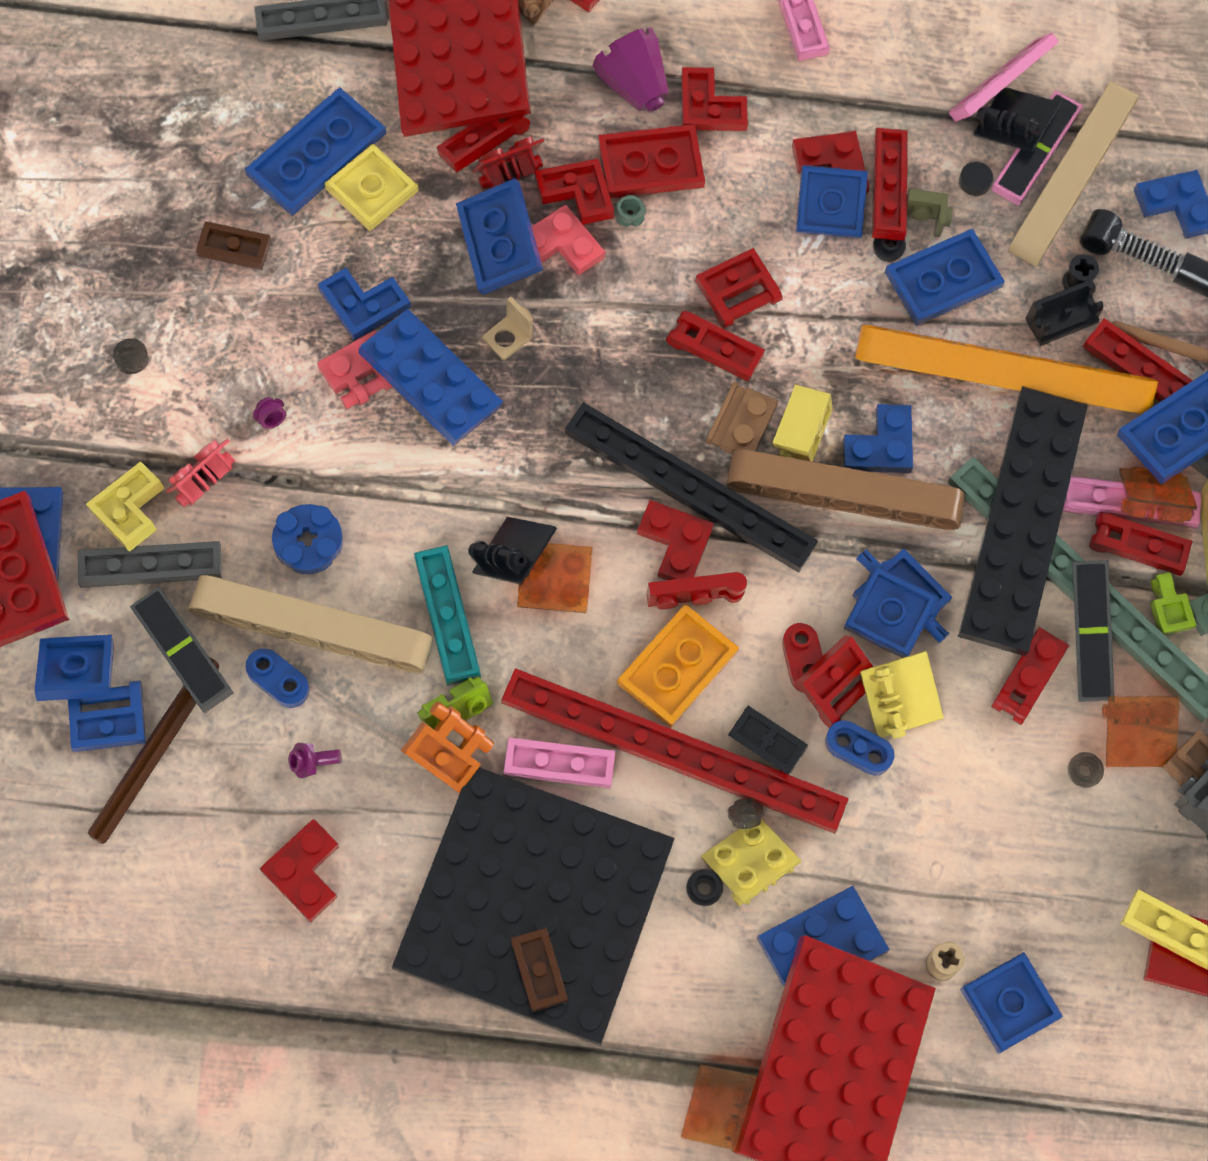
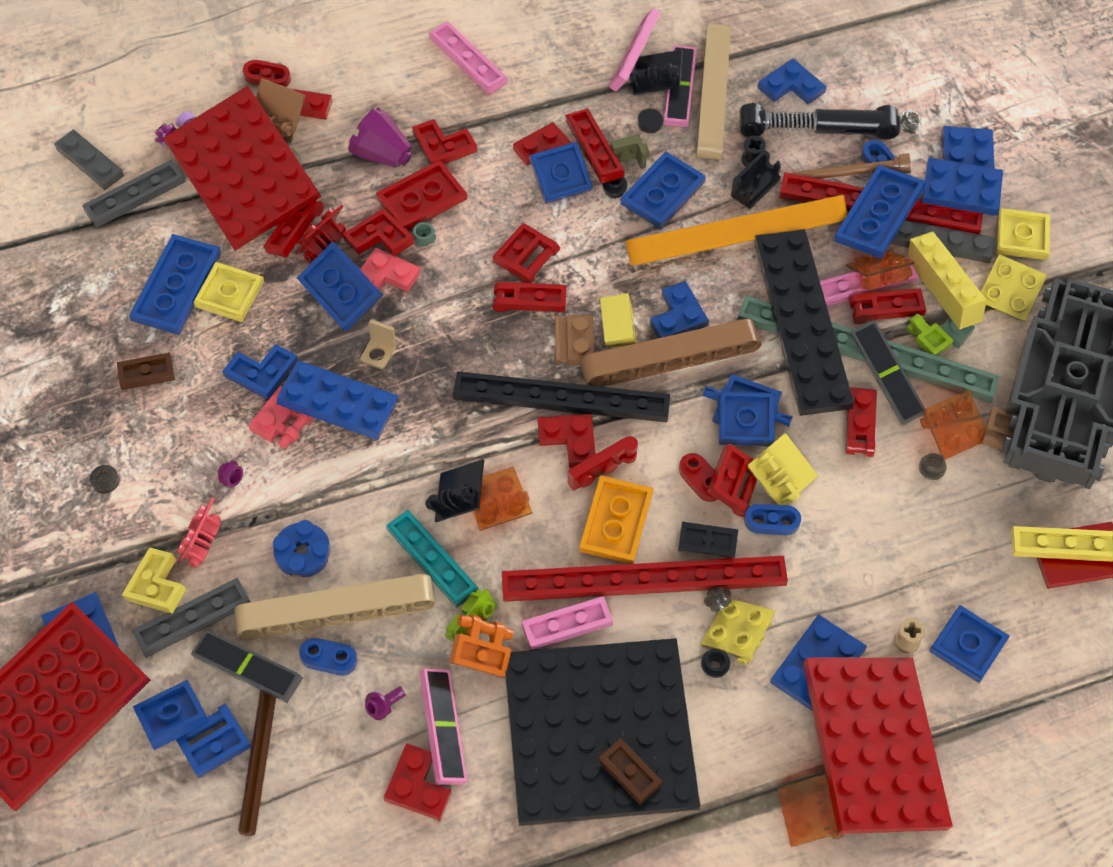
camera: 20 degrees left, 10 degrees down
(362, 818) = (443, 727): none -> tile

